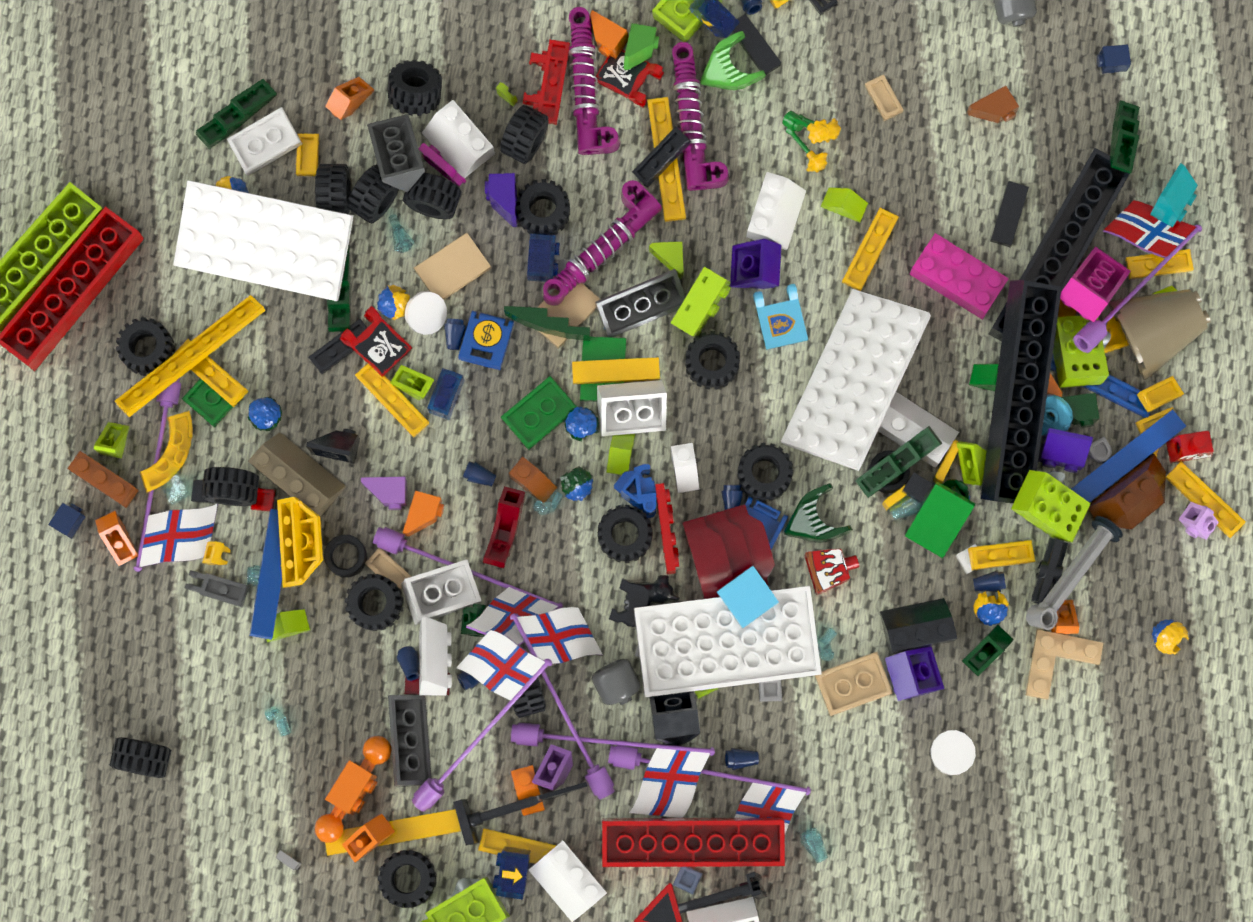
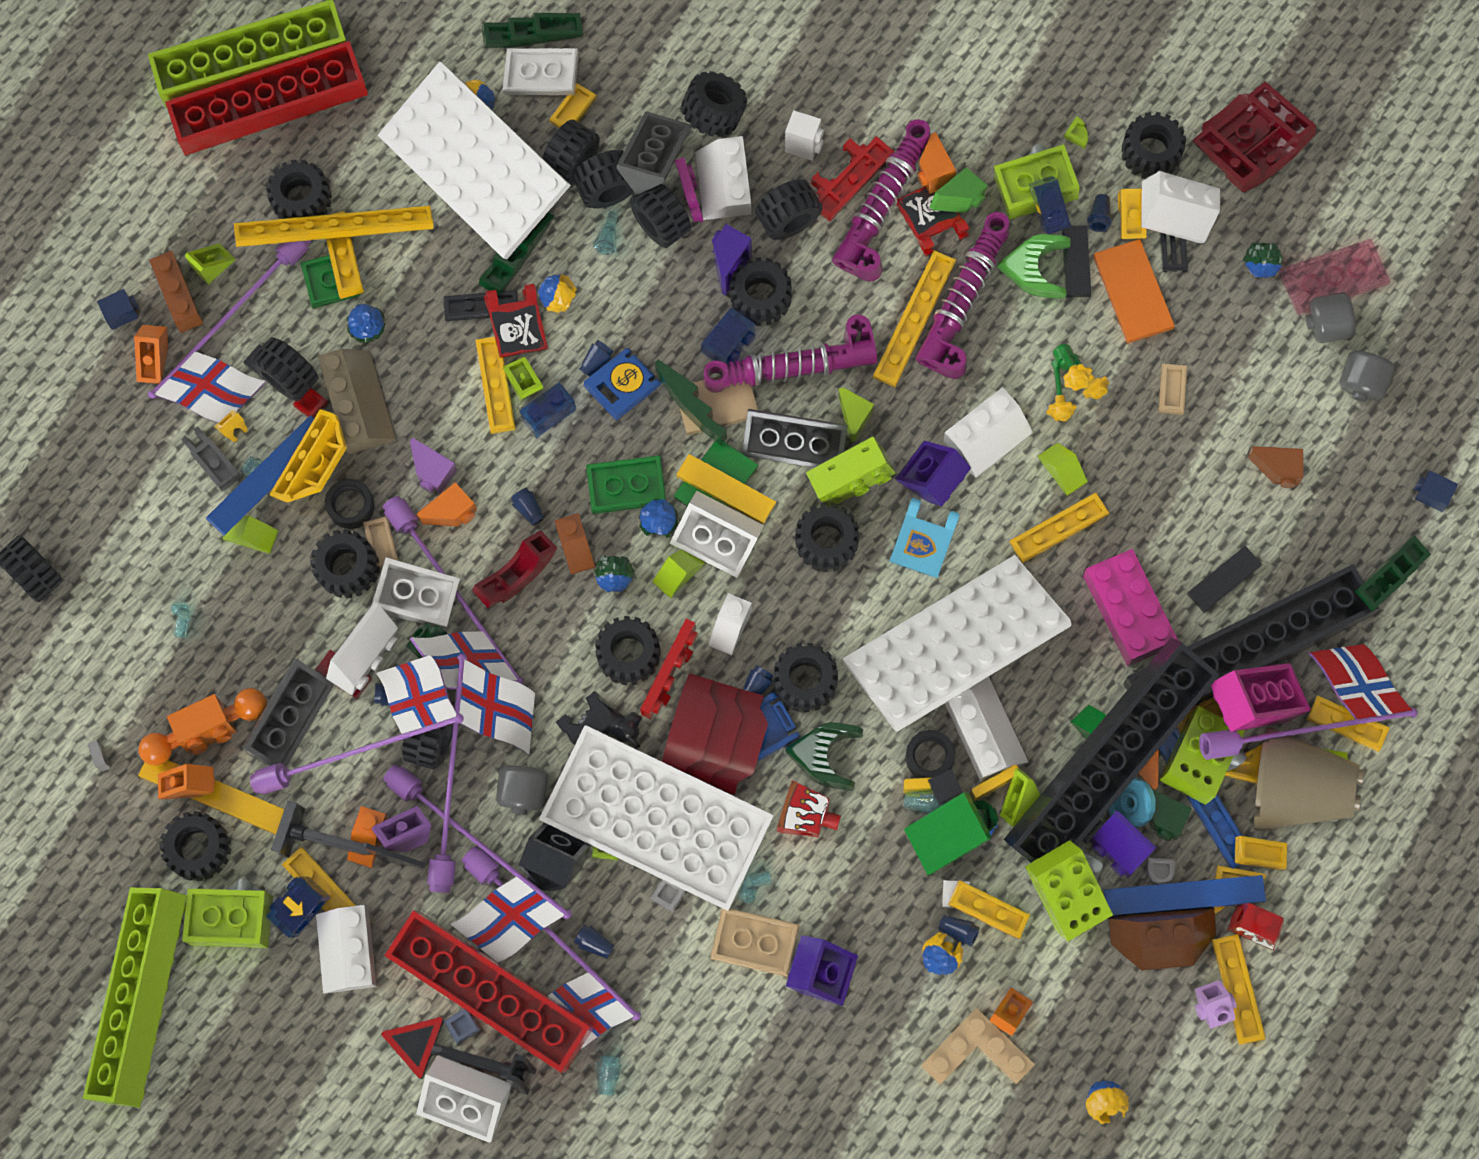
camera: 35 degrees right, 5 degrees down
(174, 455) = (256, 311): yellow tile -> none
(175, 489) = (236, 343): clear light blue slope -> none
(336, 445) = (411, 393): black slope -> none
(348, 97) = (647, 77): orange slope -> none
(408, 661) = (336, 639): dark blue cone -> none
(426, 312) = (581, 321): white tile -> none
(452, 267) = (637, 296): tan tile -> none
(497, 69) = (803, 135): none -> white brick
(502, 91) = (797, 157): lime tile -> none
(548, 506) = (574, 579): clear light blue arm -> none
(638, 490) = (669, 614): blue piece -> none
(661, 156) = (909, 312): black tile -> none
(747, 597) = (703, 785): medium azure tile -> none
(809, 42) = (1133, 291): none -> orange tile
(898, 461) = (943, 749): dark green slope -> none
(918, 626) = (856, 926): black slope -> none
(952, 752) = (808, 1074): white tile -> none
(988, 650) = (911, 995): dark green slope -> none
(1045, 614) = (999, 990): light grey piece -> none
(1050, 569) = (1026, 958): black piece -> none
(1175, 197) = (1406, 664): teal slope -> none

